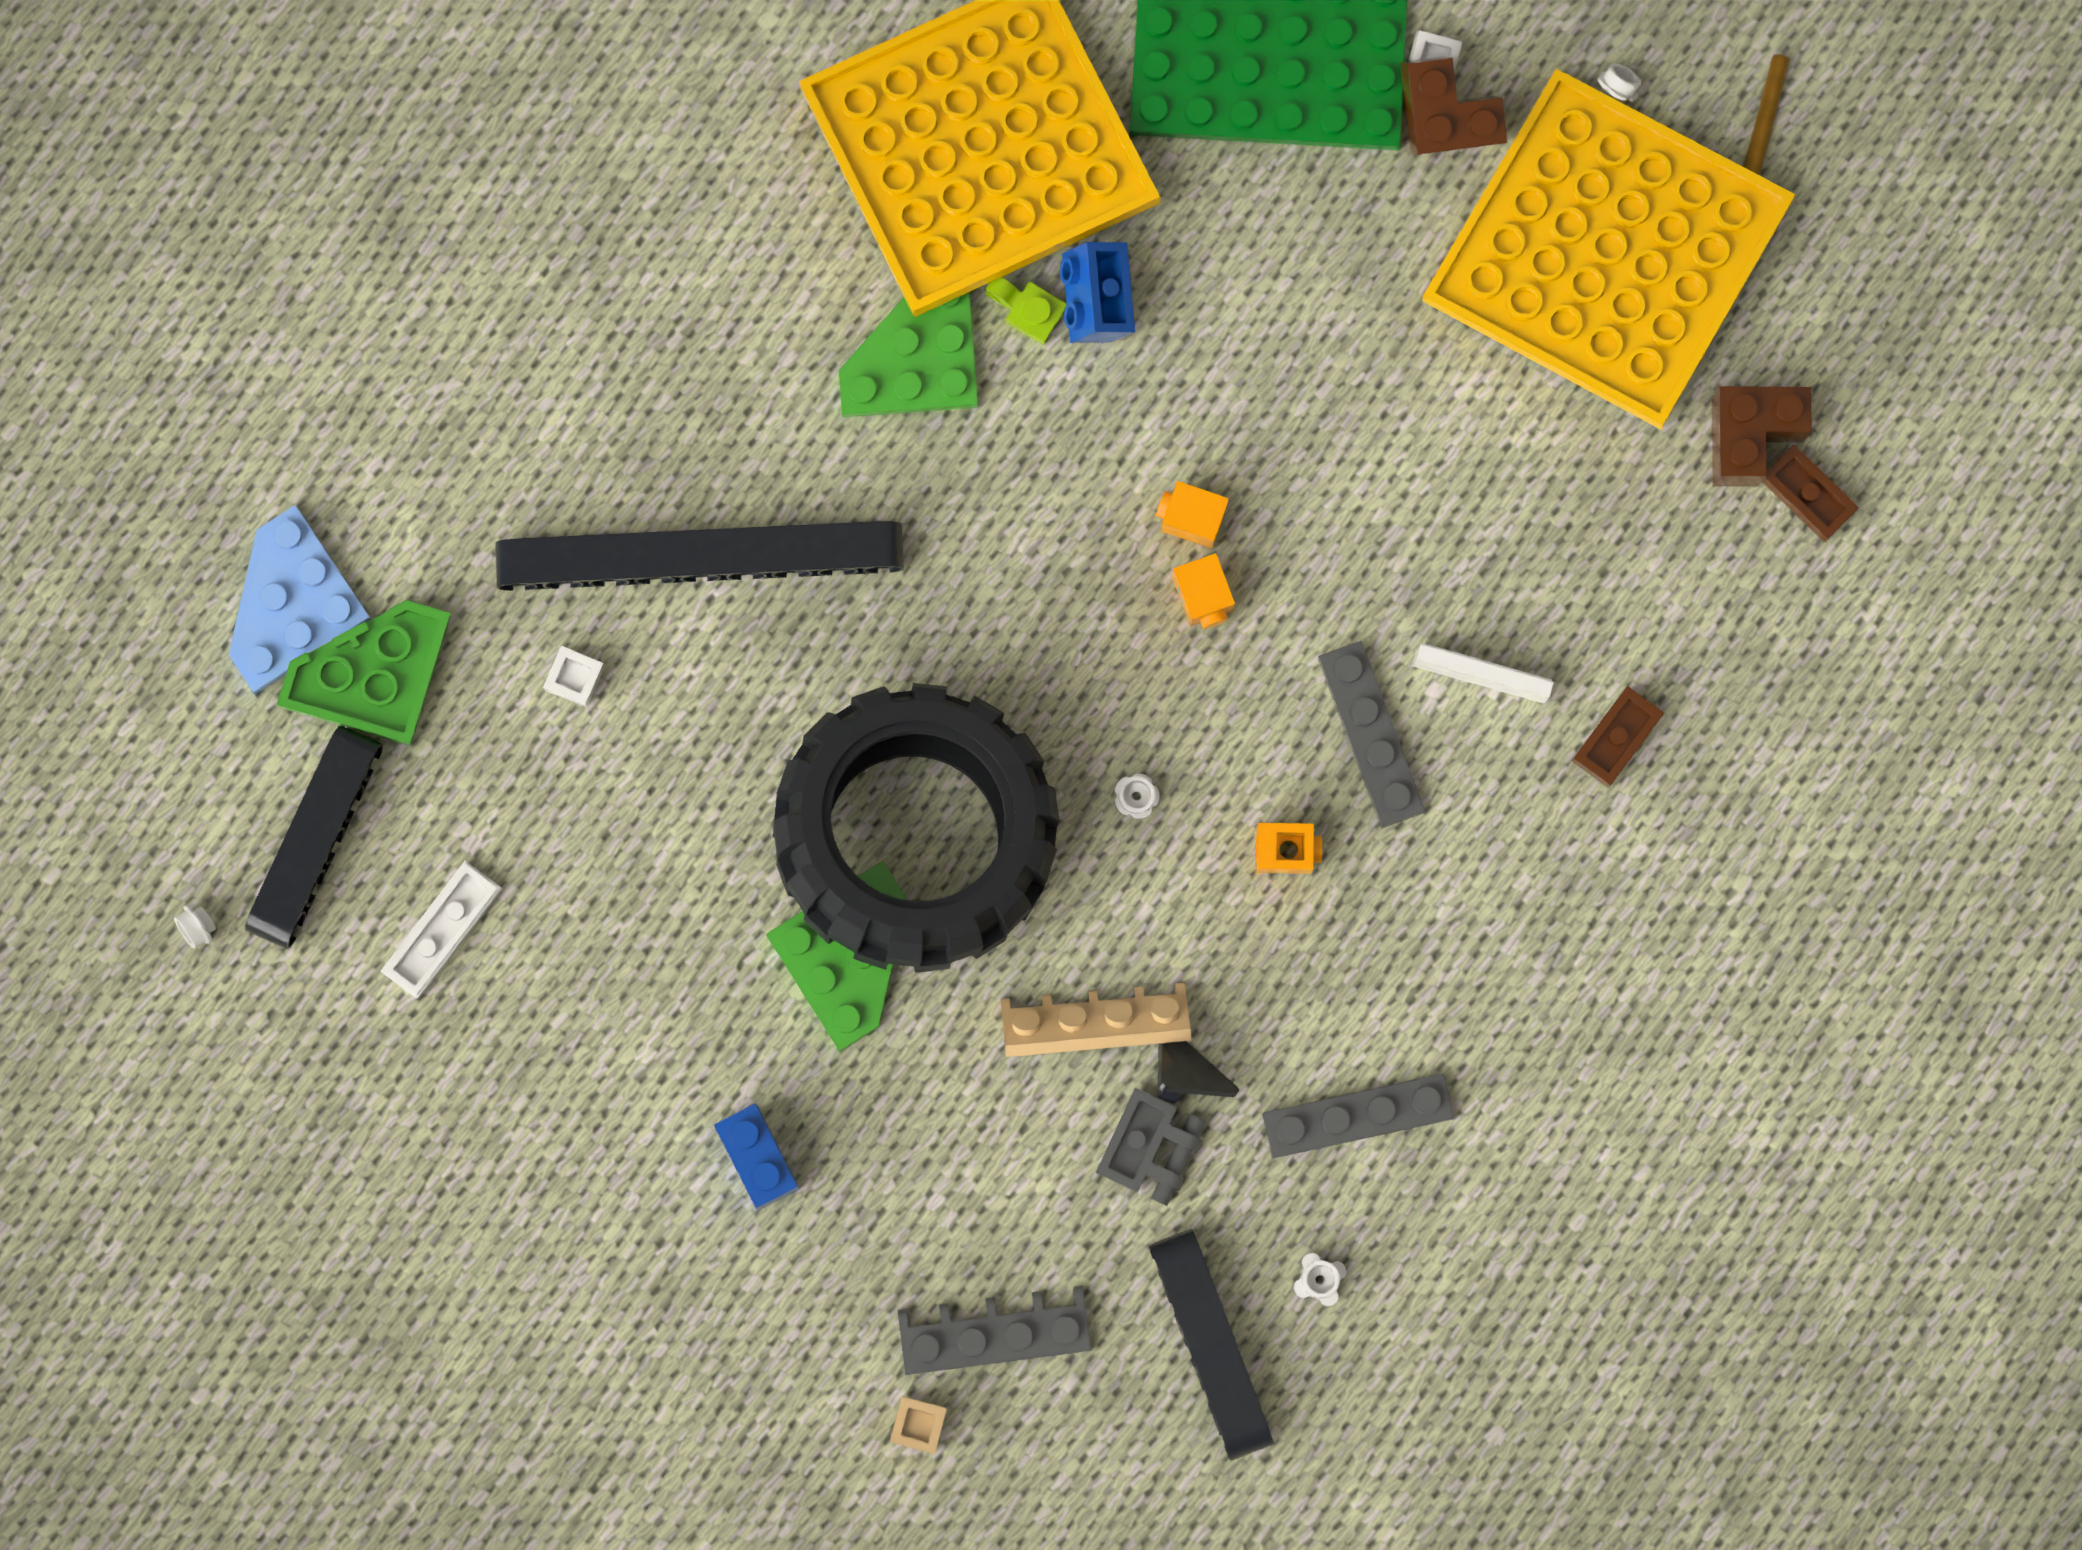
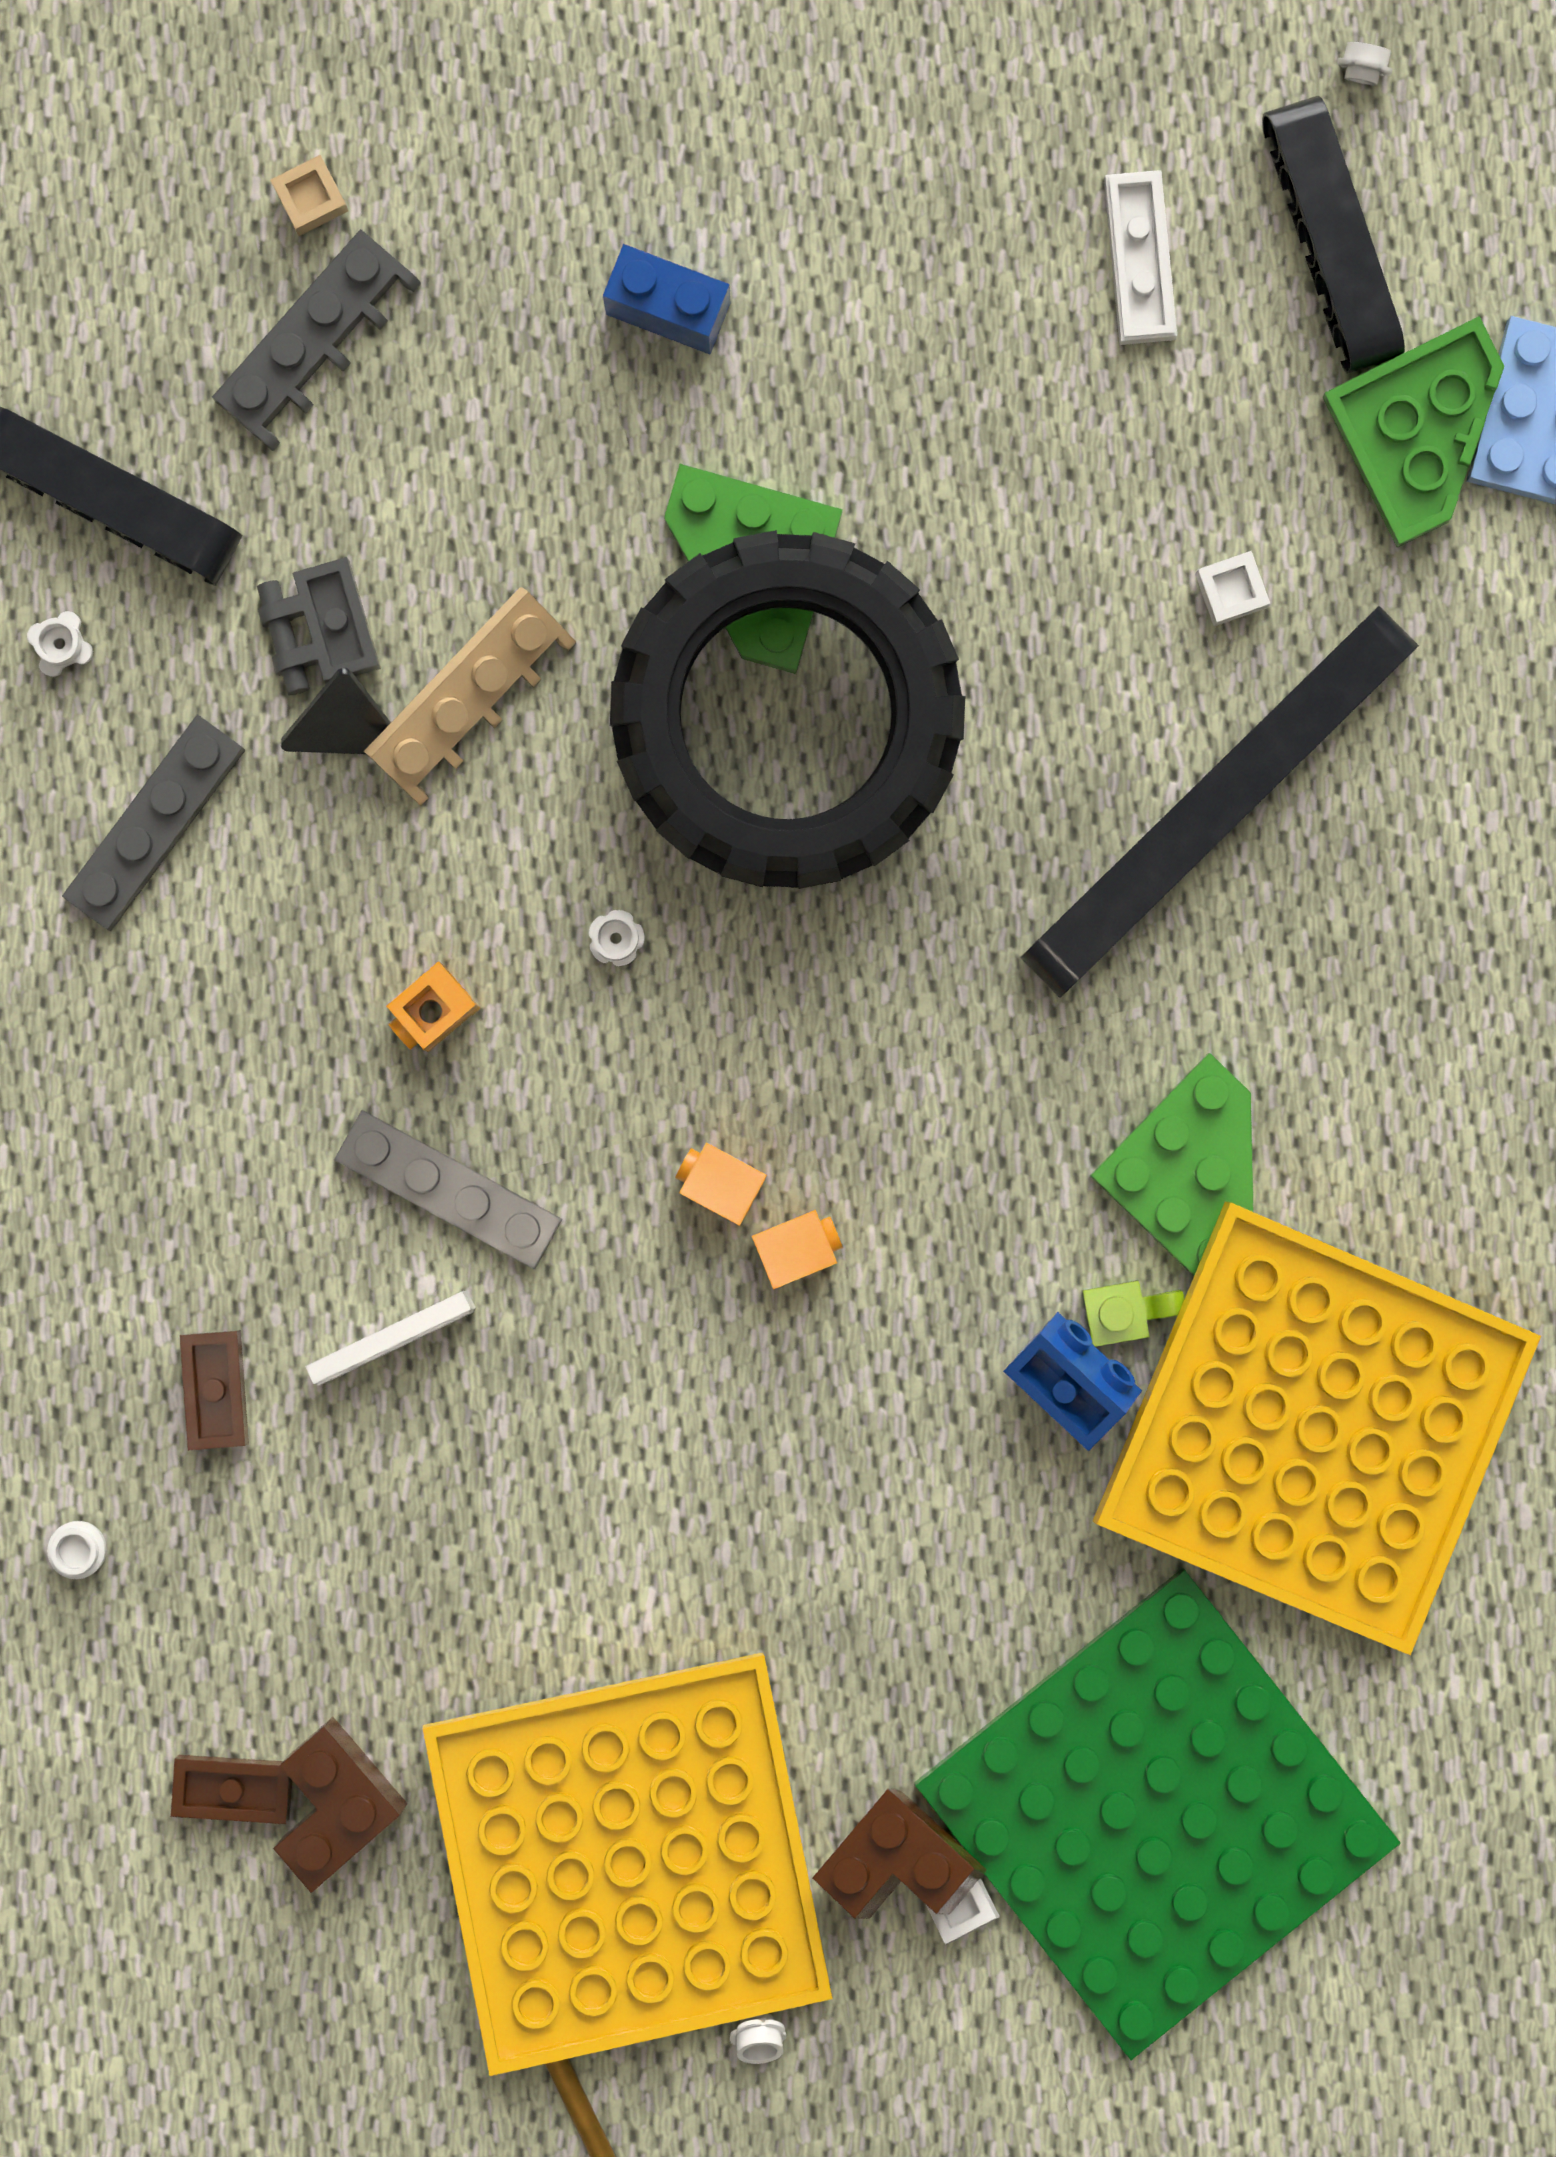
camera: 140 degrees right, 5 degrees up
(1783, 715) = (76, 1550): none -> white plate

